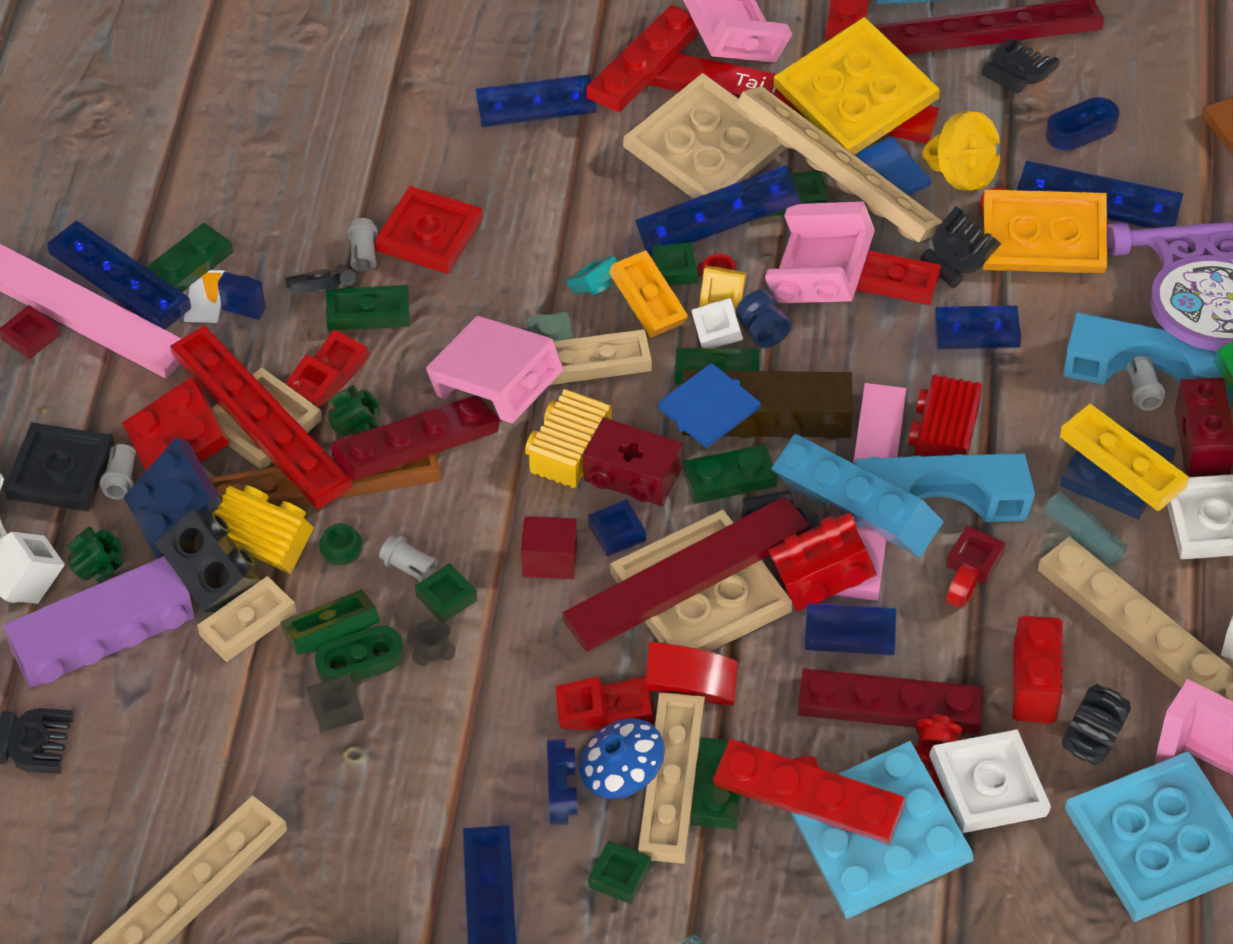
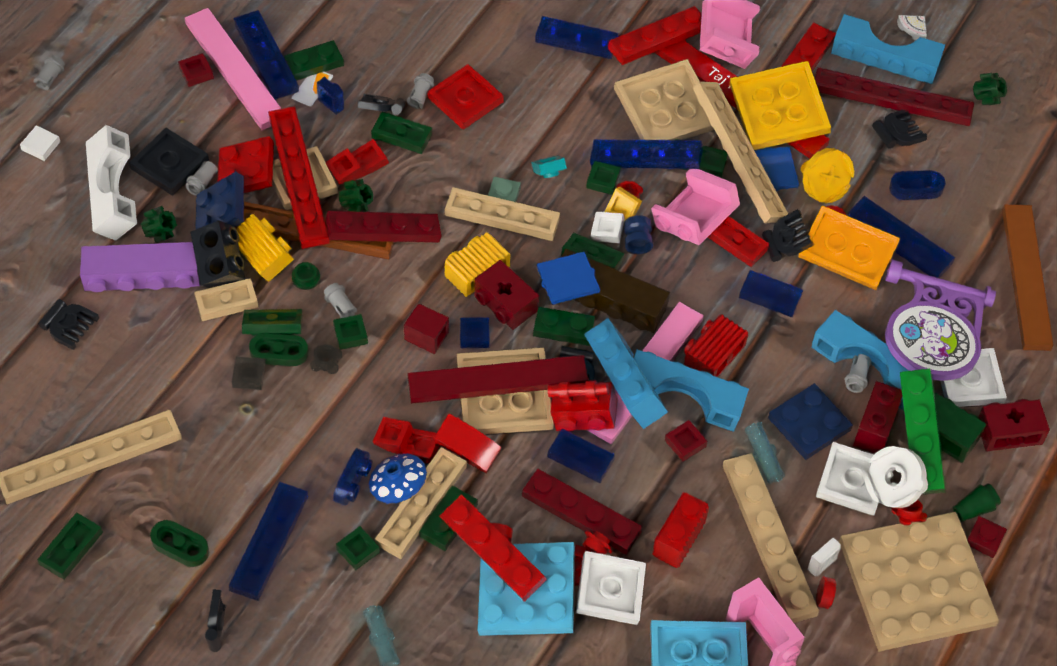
camera: 20 degrees right, 5 degrees up
(497, 365) = (454, 201): bright pink panel -> none
(648, 294) = (574, 190): light orange plate -> none
(963, 586) = (665, 457): red tile -> none
(1096, 724) = (695, 580): black gear -> none
(1124, 457) = (811, 416): yellow plate -> none

